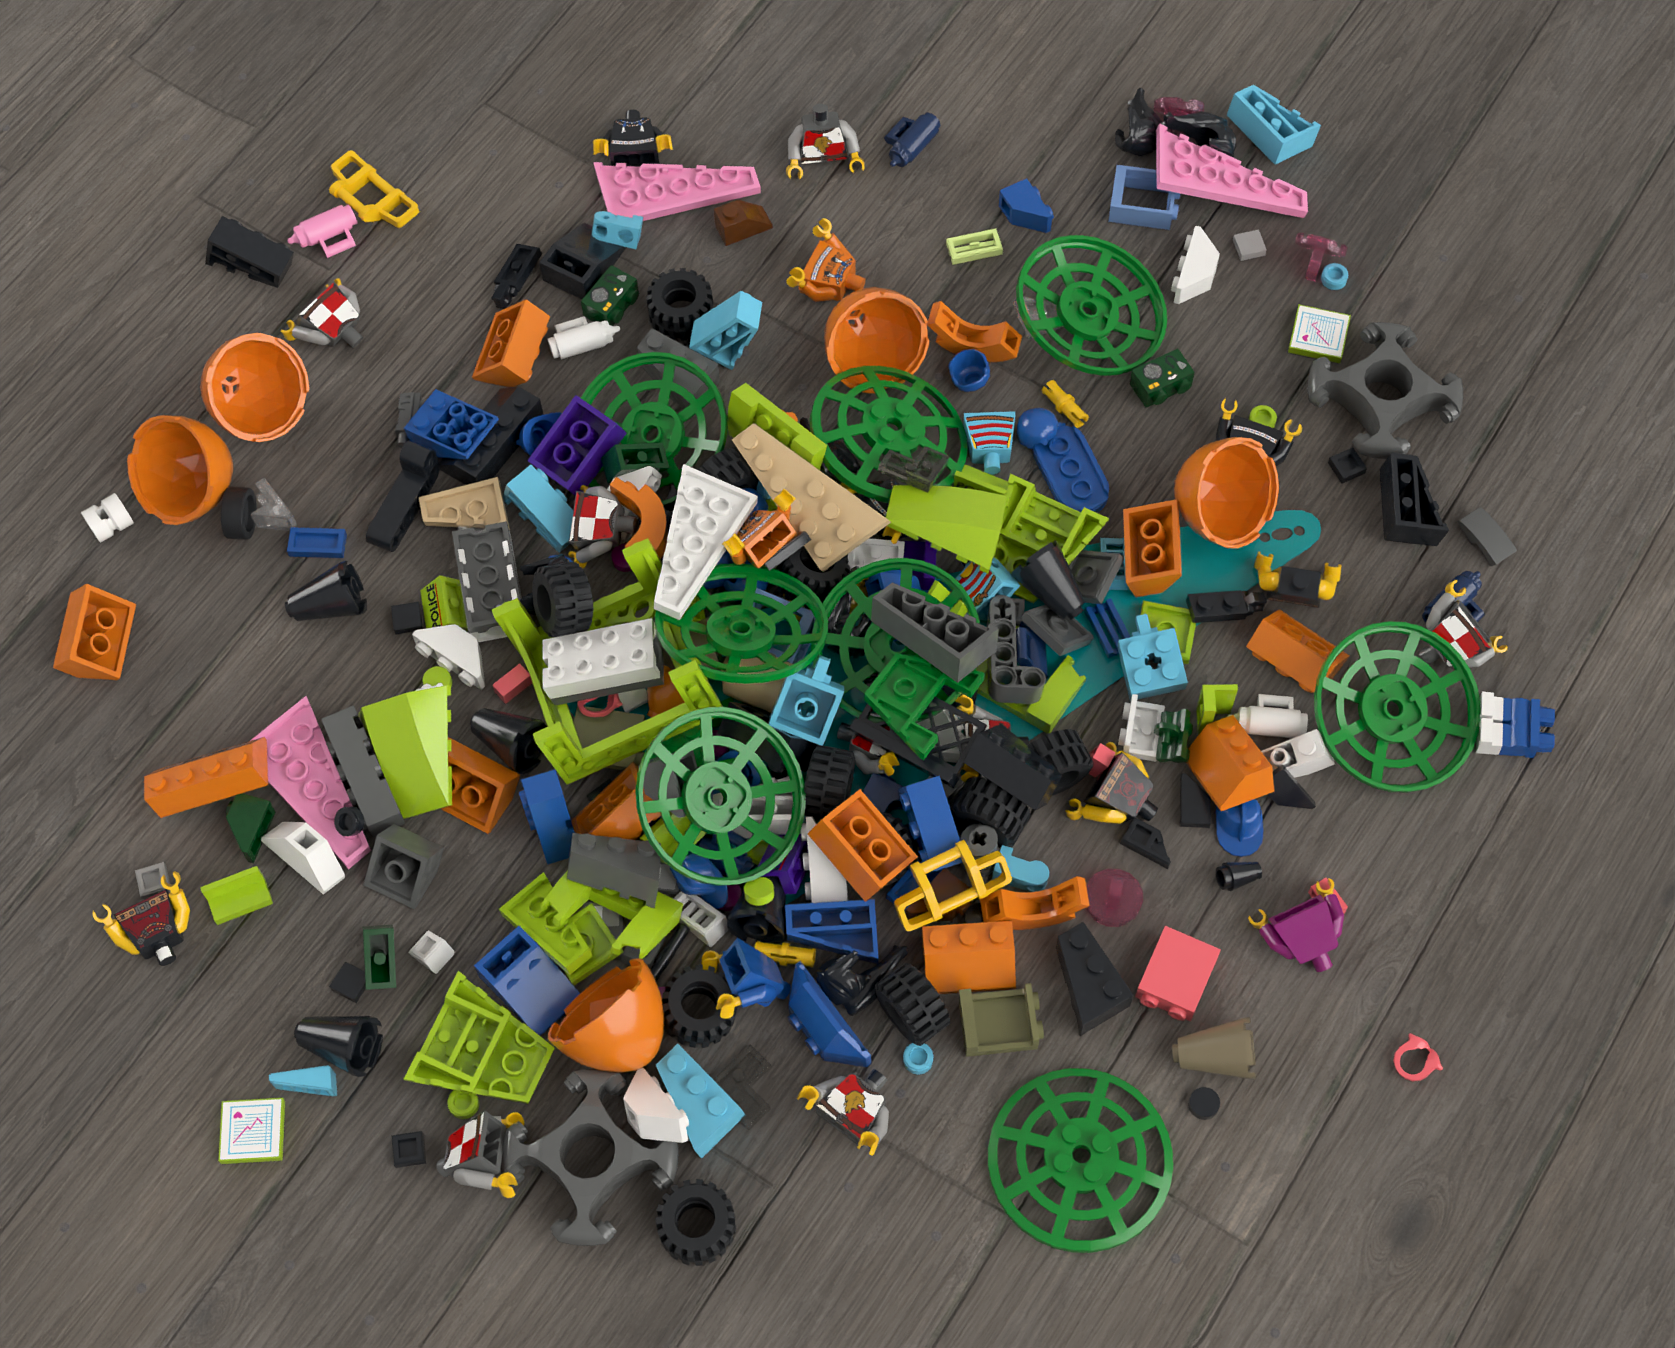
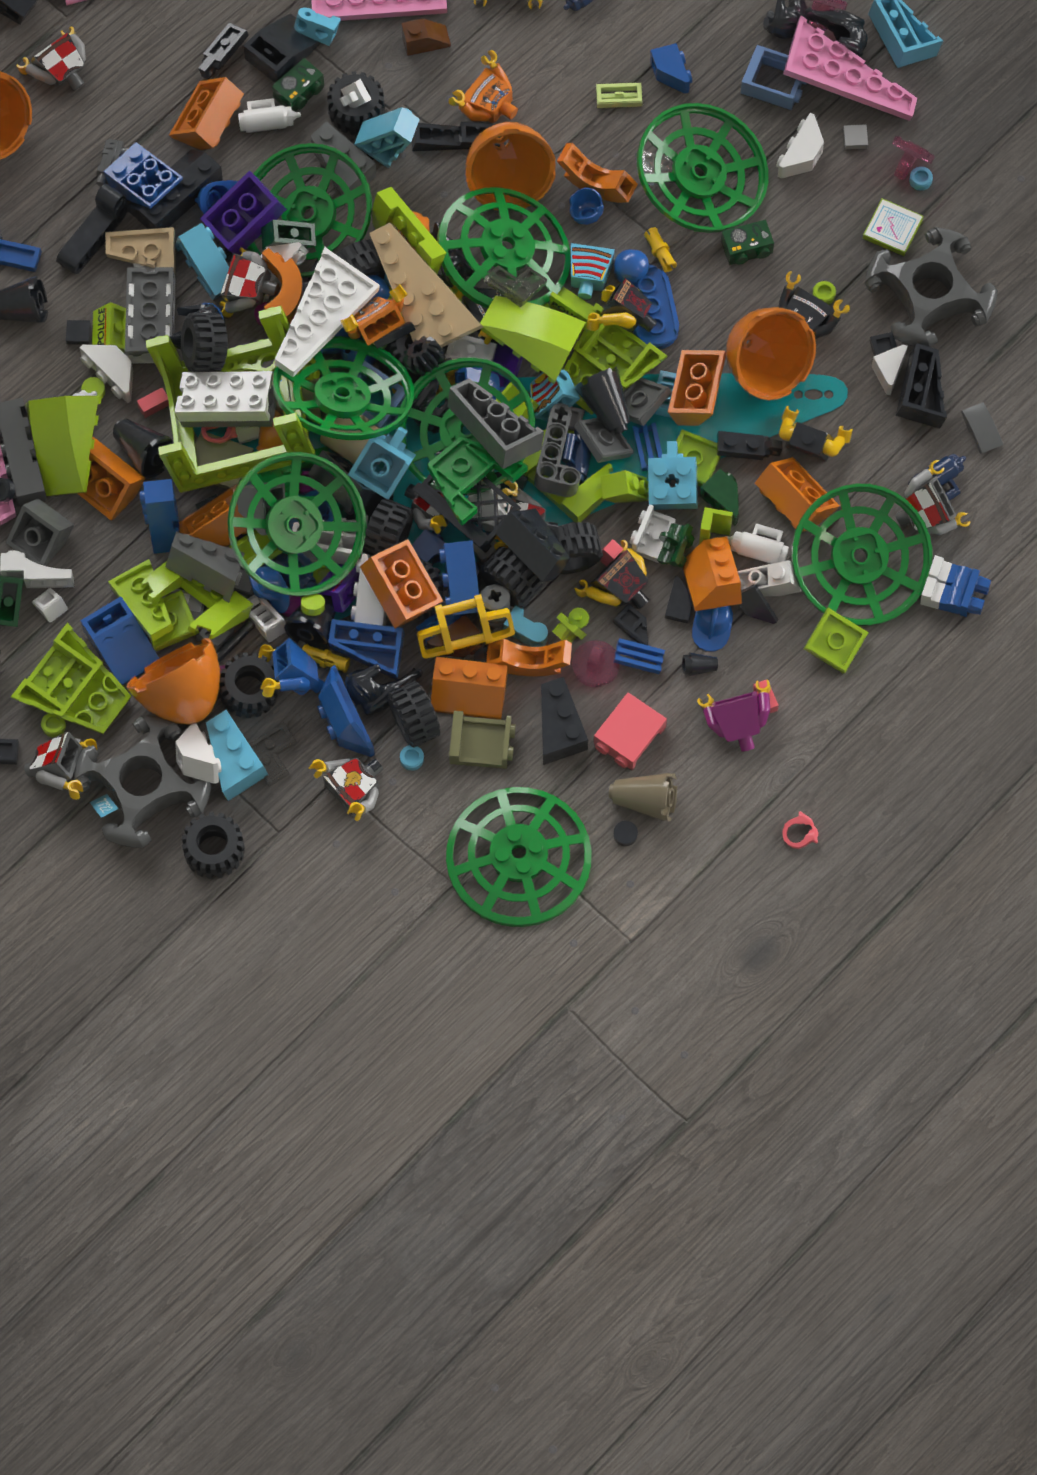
camera: 10 degrees right, 5 degrees up
(406, 918) = (34, 575): none -> white slope
(547, 1197) = (104, 805): none -> medium azure sticker
(679, 292) = (355, 94): none -> white tile
(789, 325) = (447, 137): none -> black slope
(827, 568) = (423, 355): none -> black gear
(1043, 473) = (623, 307): none -> torso
(1077, 856) = (571, 626): none -> lime hips
(1096, 679) = (624, 487): none -> lime slope
(1168, 875) = (637, 651): none -> blue tile
(1211, 665) = (722, 493): none -> dark green slope
(1360, 487) = (888, 365): none -> white slope
(1393, 815) = (835, 640): none -> lime tile

